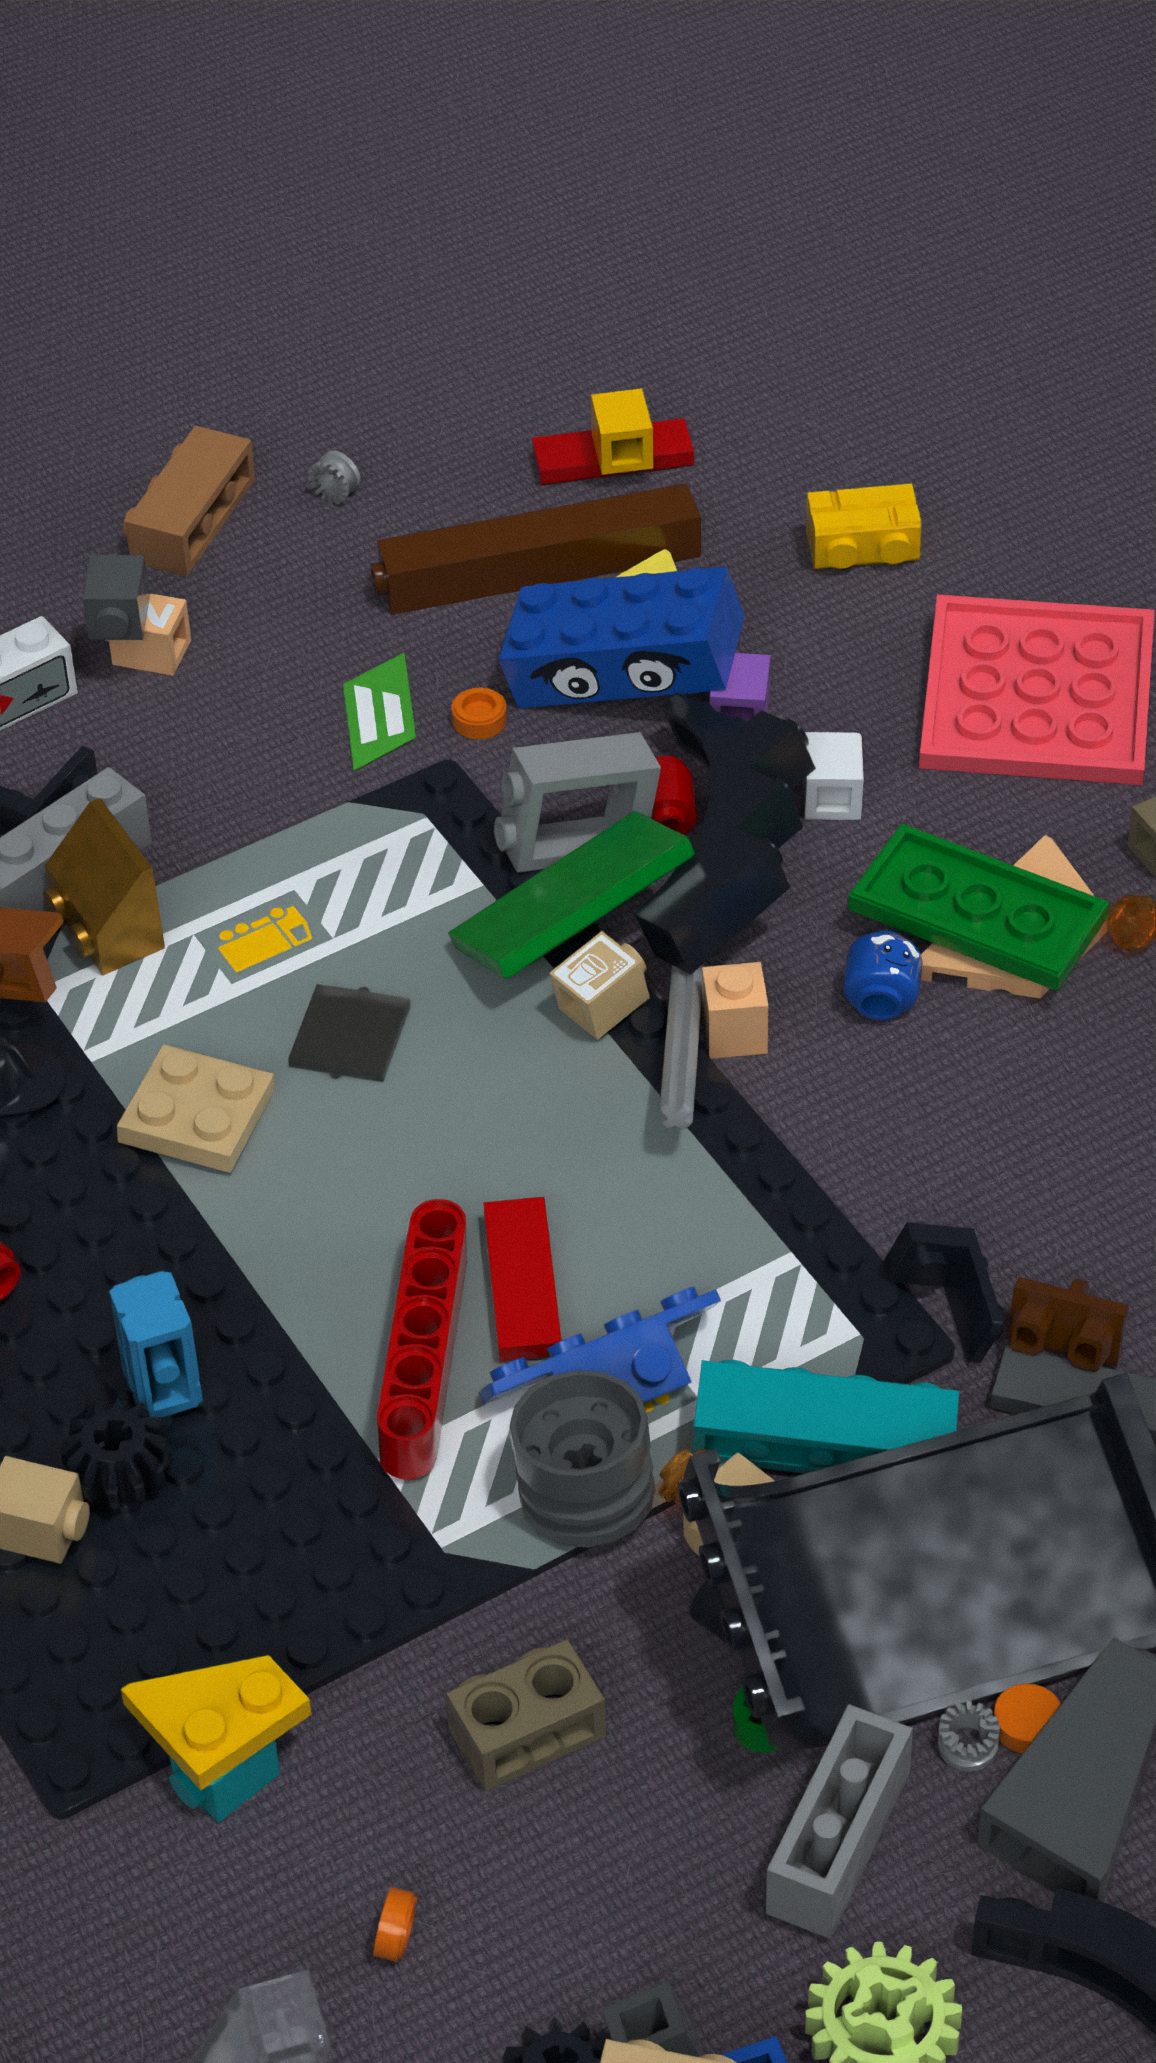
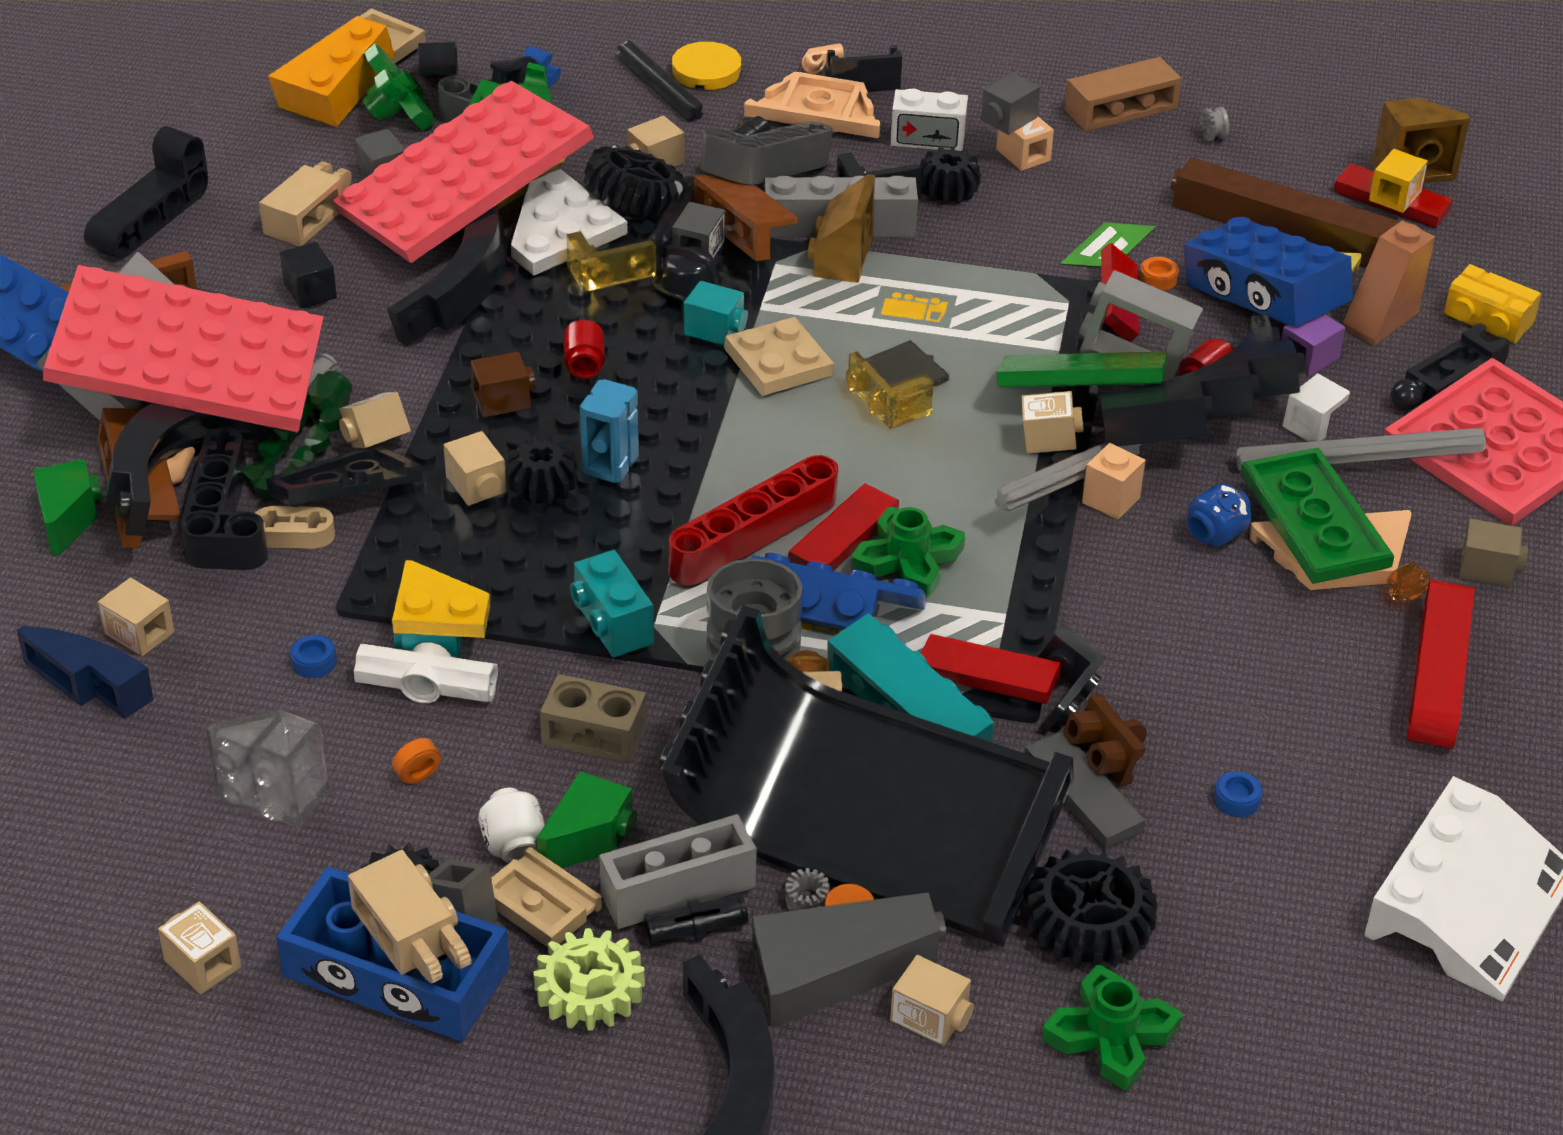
camera: 40 degrees right, 5 degrees down
(75, 1104) = (714, 312): none -> teal brick
(103, 1894) = (313, 656): none -> blue tile
(120, 732) = (950, 175): none -> black gear
(272, 1810) = (426, 672): none -> white piece
(374, 1080) = (892, 403): none -> clear yellow bracket
(403, 1558) = (613, 603): none -> teal brick
(460, 756) = (1119, 320): none -> red tile
(586, 357) = (1424, 132): none -> pearl gold slope
(595, 1912) = (510, 823): none -> white head
(622, 1248) = (909, 547): none -> green plant
(666, 1841) = (587, 821): none -> green slope
(725, 1968) = (543, 897): none -> tan plate
(762, 567) = (1391, 283): none -> nougat slope
(866, 1328) = (992, 668): none -> red tile
(901, 1859) = (696, 919): none -> black pin
(903, 638) = (1447, 367): none -> black plate
(927, 795) = (1377, 447): none -> light grey axle

